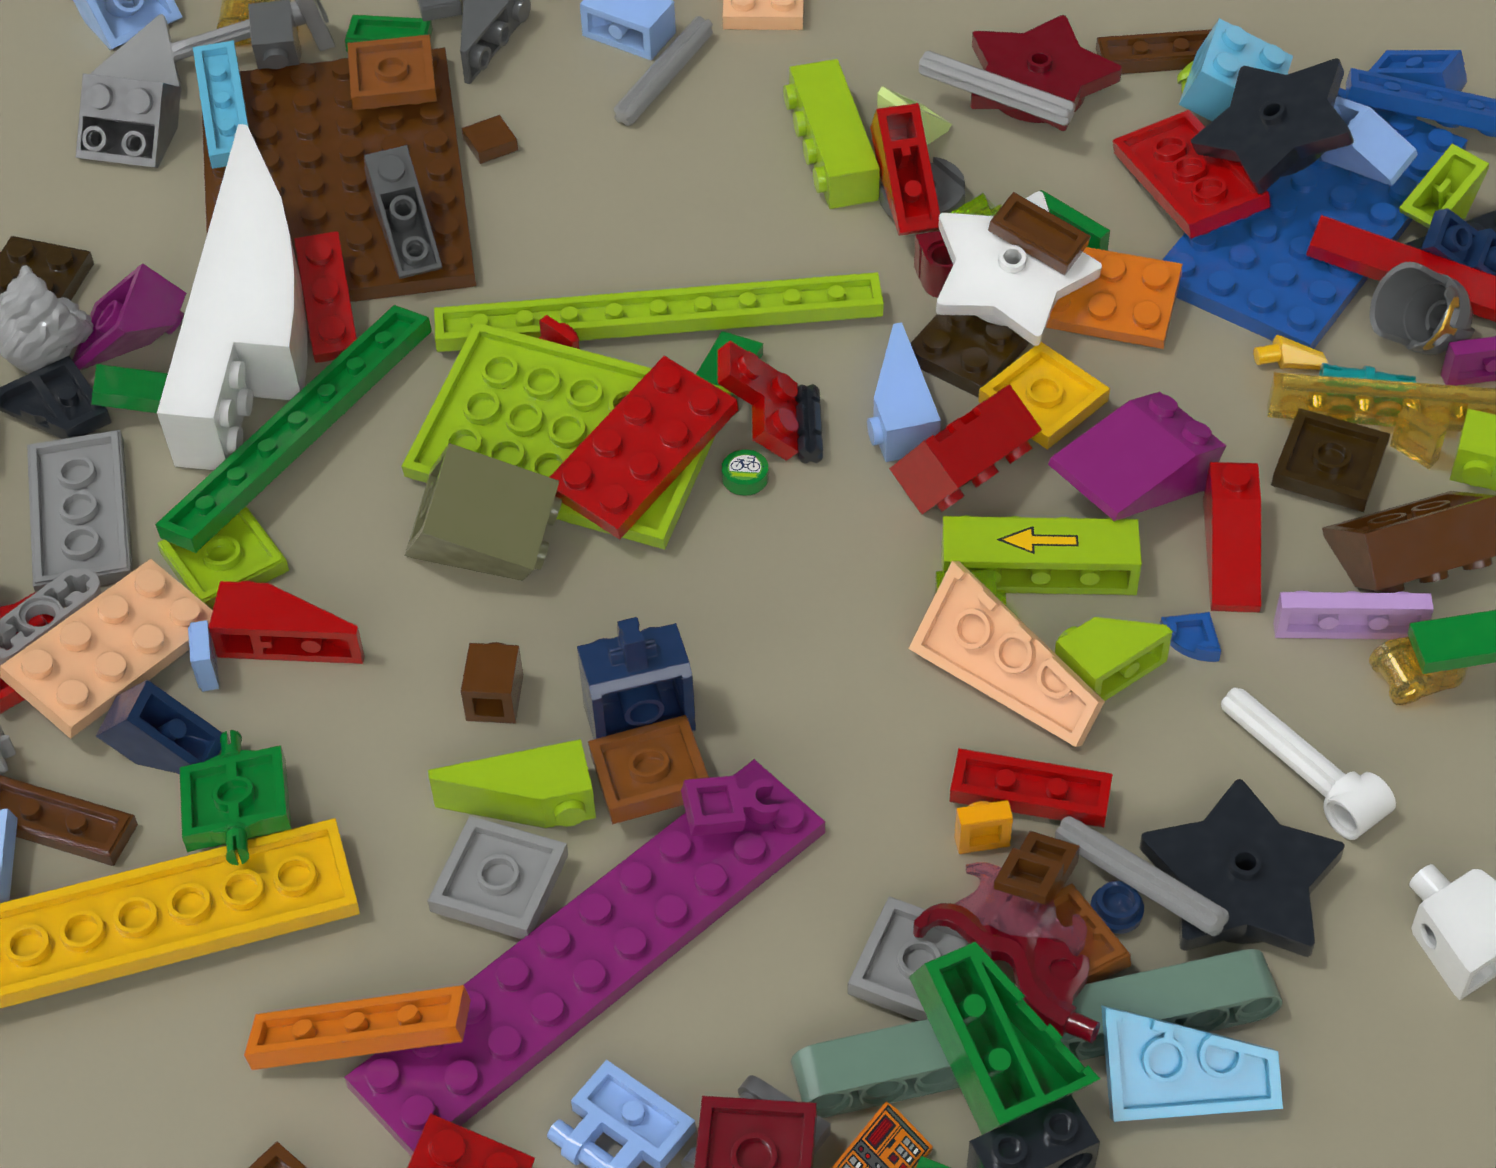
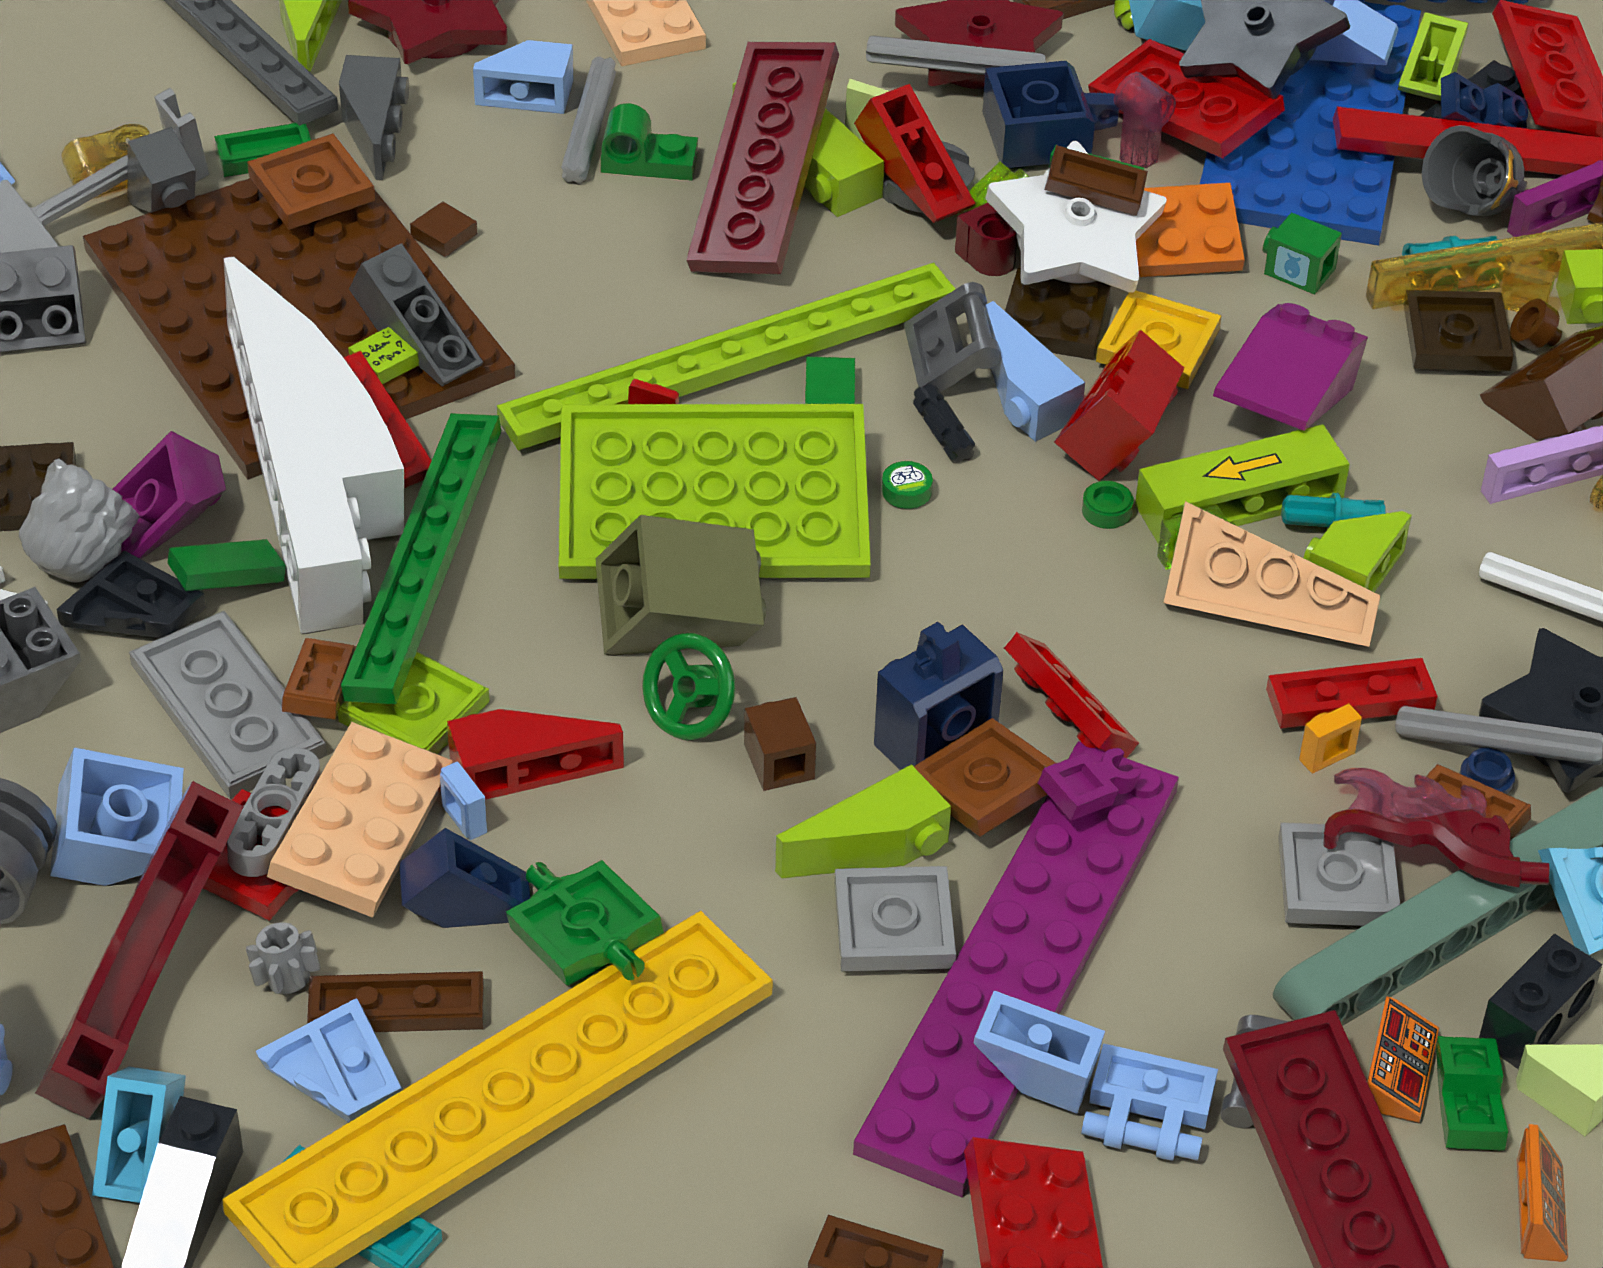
camera: 25 degrees left, 5 degrees down
(138, 518) = (317, 679): none -> dark orange plate
(220, 97) = (142, 255): medium azure plate -> none
(358, 1027) = (849, 1087): orange plate -> none
(363, 240) = (387, 354): none -> lime tile
(447, 608) = (712, 686): none -> green piece
(535, 1048) = (1039, 1050): none -> light blue slope
(642, 446) = (808, 478): red plate -> none
(683, 105) = (636, 151): none -> green plate
(768, 392) = (898, 403): red plate -> none
(770, 715) = (1068, 695): none -> red plate
(774, 140) = (763, 158): none -> dark red plate
(841, 339) = (937, 343): none -> flat silver plate
(913, 540) = (1107, 504): none -> green tile
(994, 1039) = (1469, 902): green wedge -> none
(1037, 868) = (1407, 754): reddish brown slope -> none
(1053, 154) = (1041, 107): none -> dark blue hinge
(1109, 604) = (1323, 511): none -> teal axle
(1135, 183) = (1145, 111): none -> clear pink piece
(1194, 636) = (1426, 521): blue tile -> none
(1221, 347) = (1301, 252): none -> green brick
(1233, 536) = (1408, 419): red slope -> none
(1289, 354) = (1367, 246): yellow bar -> none
(1409, 475) = (1536, 325): none -> reddish brown tile

